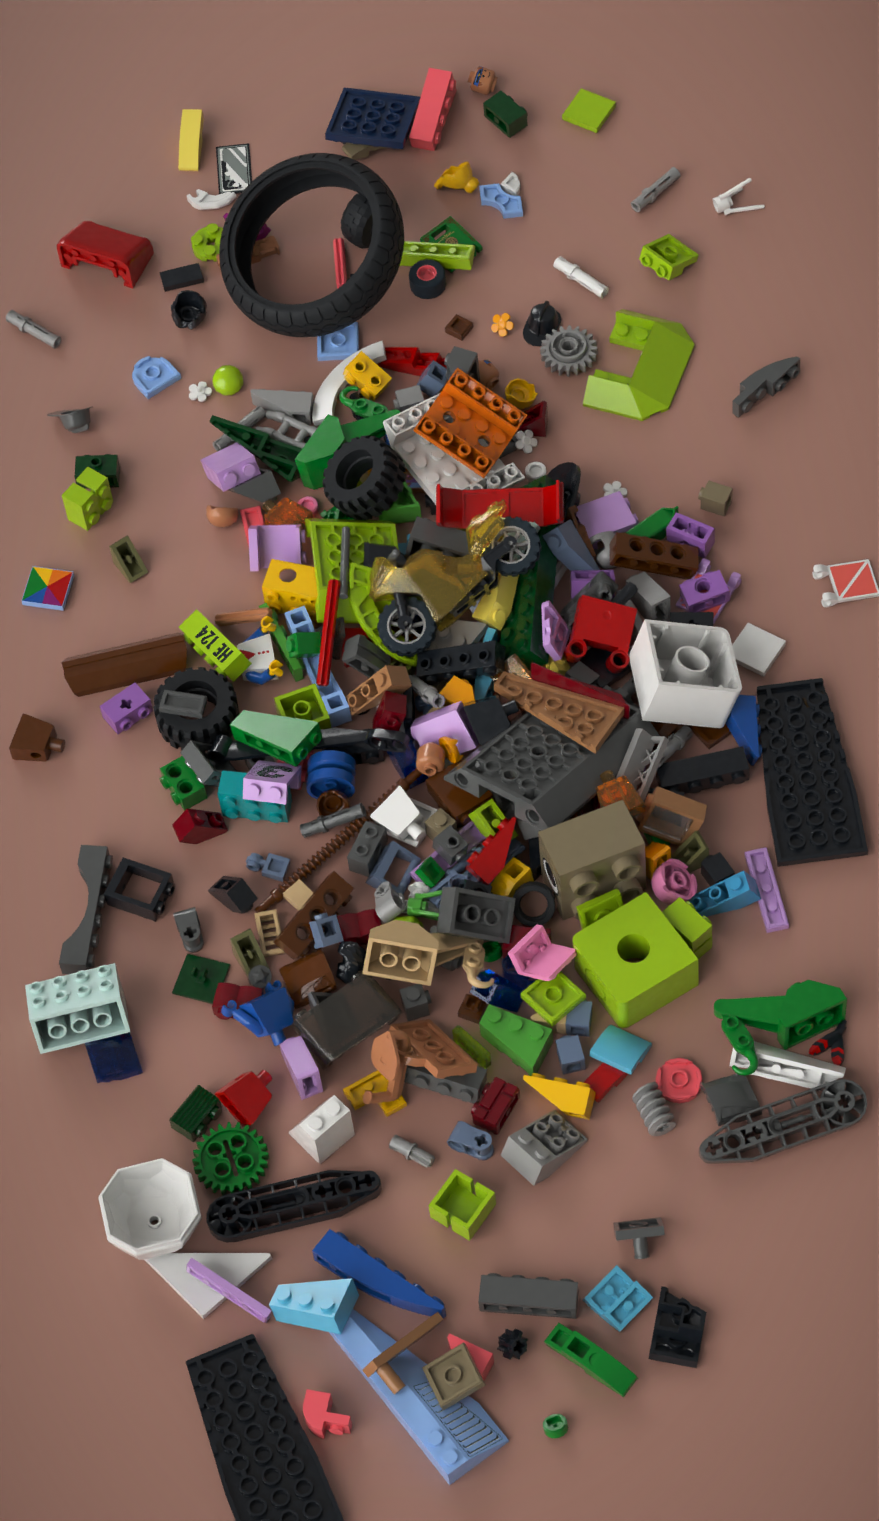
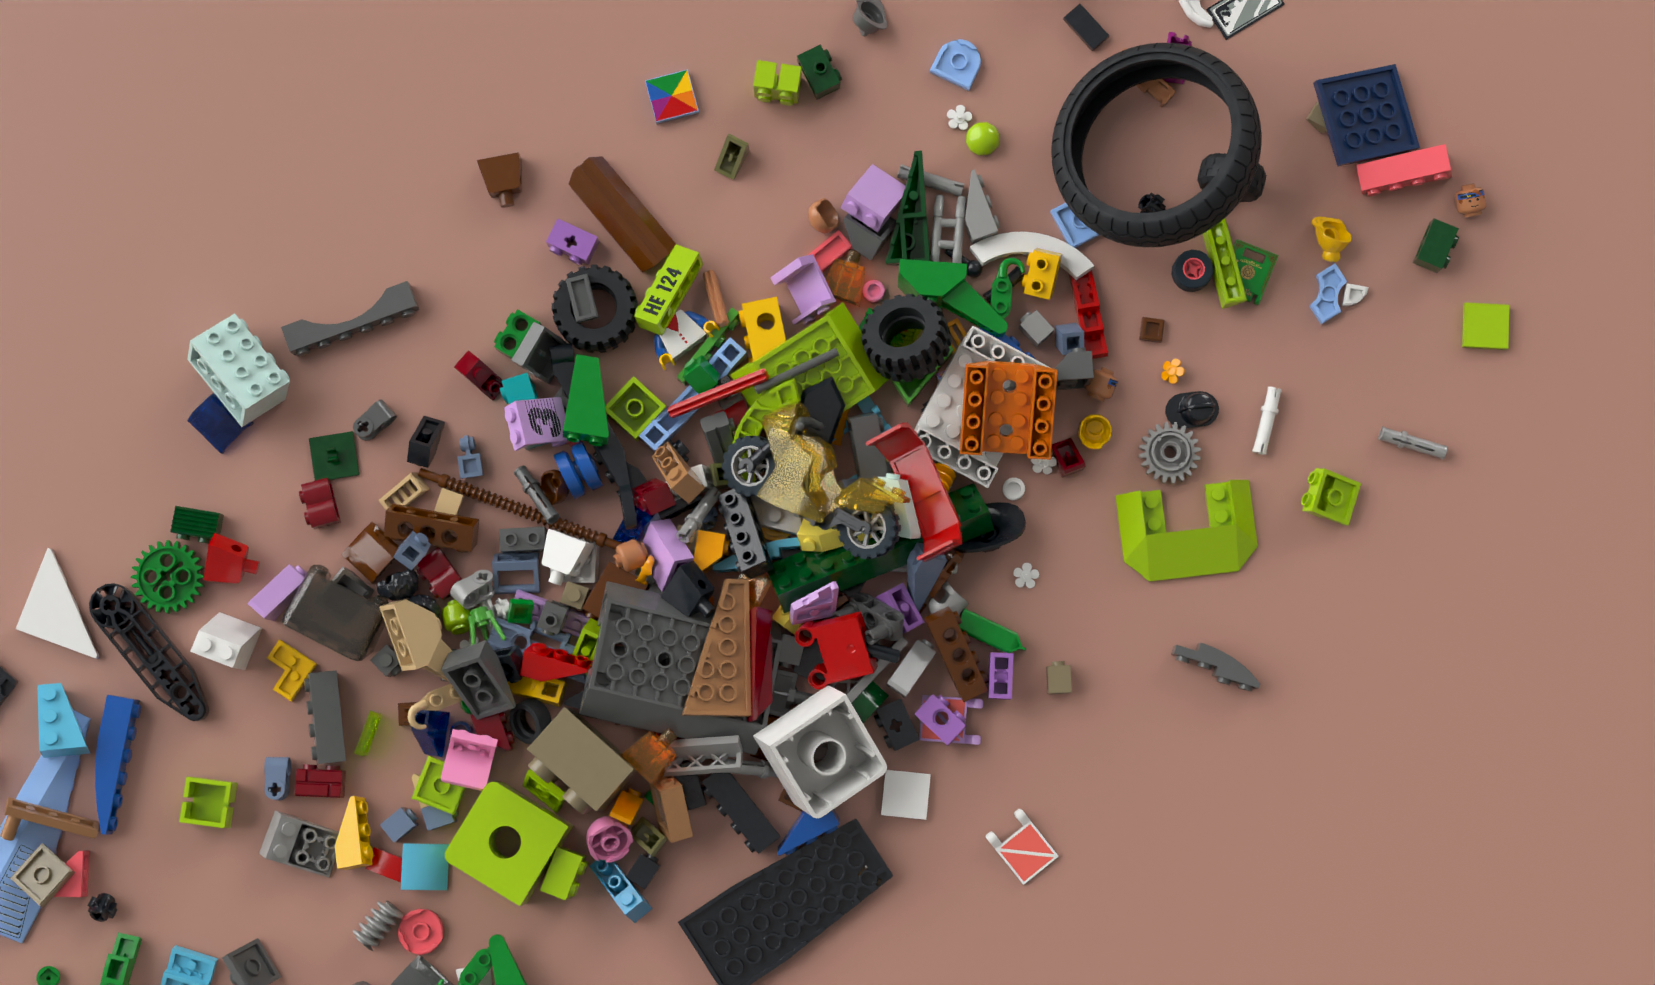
camera: 60 degrees right, 25 degrees up
(120, 879) = (392, 333): black window -> none
(147, 1194) = (55, 533): white rock -> none
(188, 309) = (1044, 57): black hair -> none
(200, 242) = (1138, 22): lime plate -> none
(228, 1290) = (40, 642): lavender tile -> none
(247, 951) = (370, 490): olive slope -> none
(259, 976) = (355, 509): dark grey tile -> none
(266, 1013) = (314, 538): blue torso -> none
(340, 262) = (1174, 174): coral axle -> none
(411, 1151) = (246, 730): light grey axle -> none
(415, 1045) = (333, 703): nougat plate -> none
(516, 1037) = (392, 769): bright green wedge -> none
(528, 1296) = (150, 900): dark grey brick -> none
(606, 514) = (984, 585): lavender panel -> none
(723, 202) = (1429, 518): white plant -> none
(771, 902) = (656, 918): lavender tile -> none

